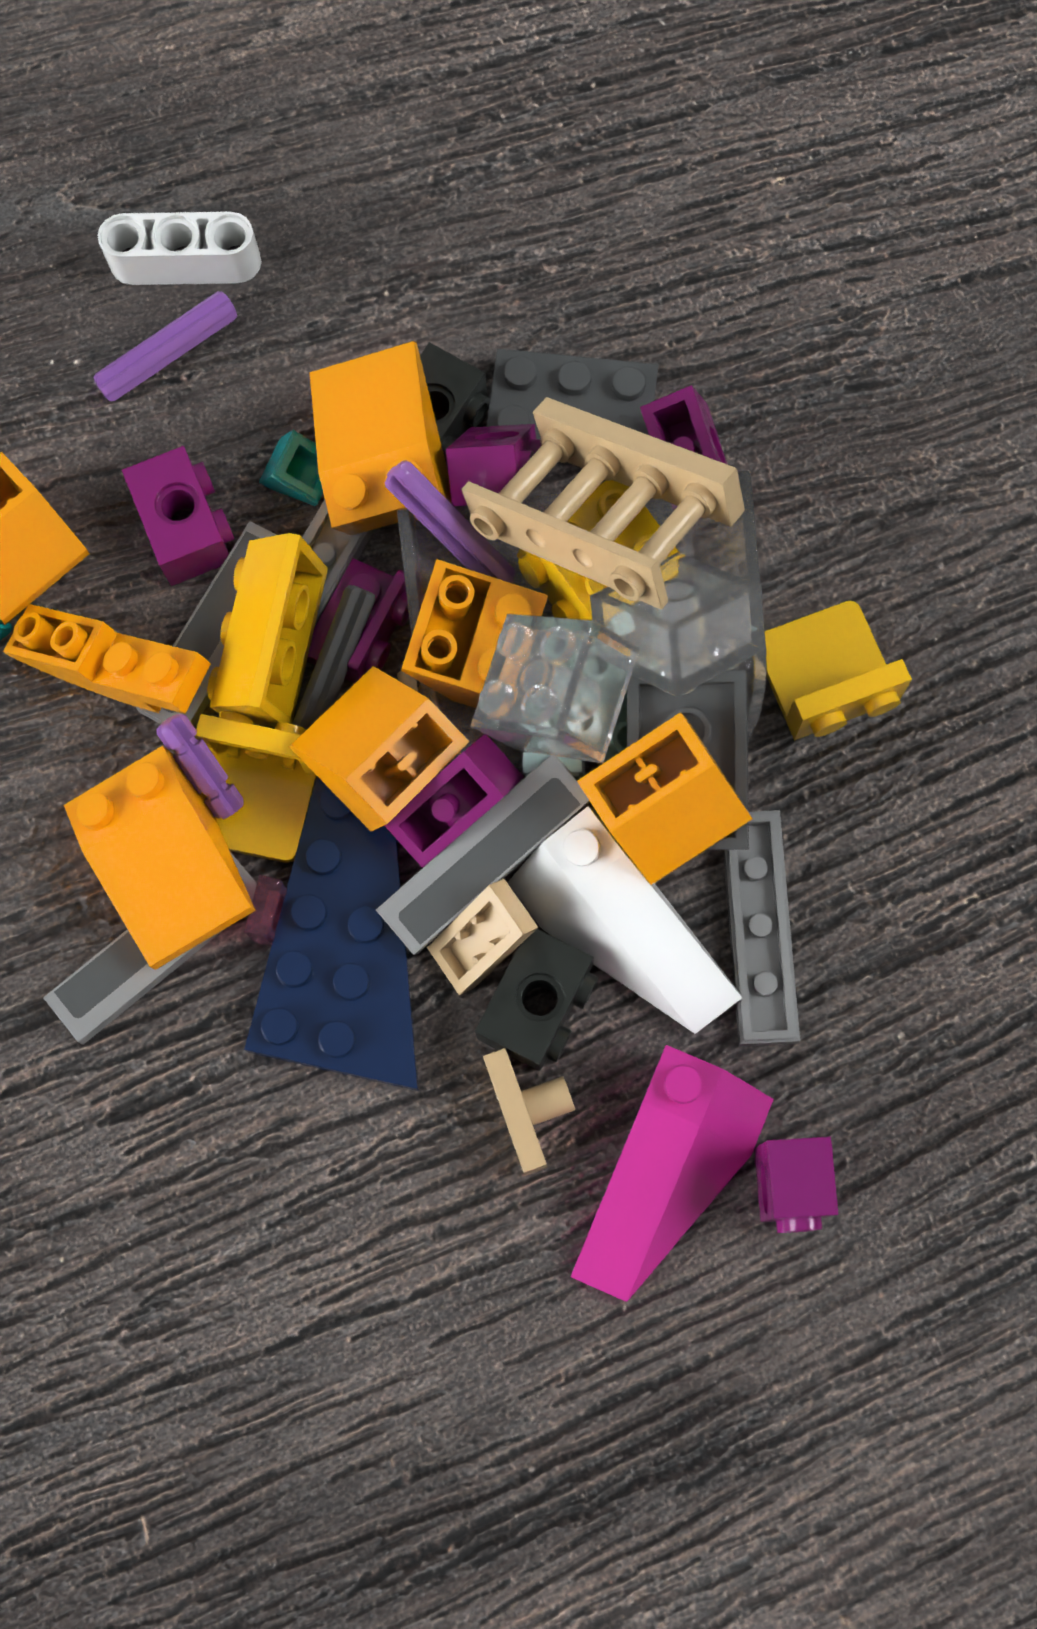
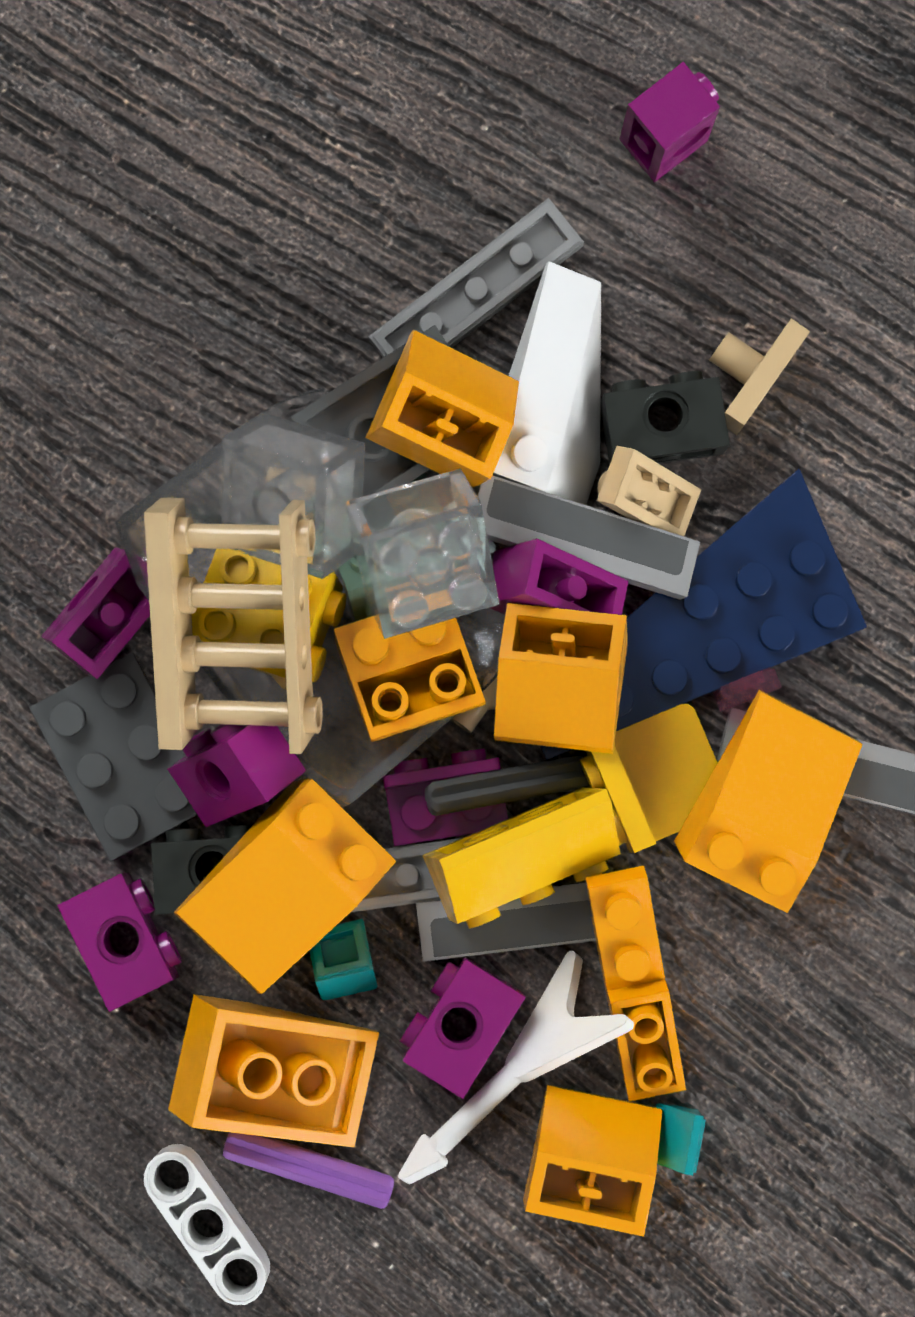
camera: 135 degrees left, 10 degrees up
(116, 564) = (545, 1043): none -> white piece
(200, 766) = (674, 824): medium lavender axle -> none
(251, 359) = (272, 1072): none -> light orange slope
(413, 295) = (90, 921): none -> magenta brick
(446, 522) = (332, 755): medium lavender axle -> none
(678, 1157) = (708, 235): dark pink wedge -> none
(830, 671) = (219, 368): yellow bracket -> none

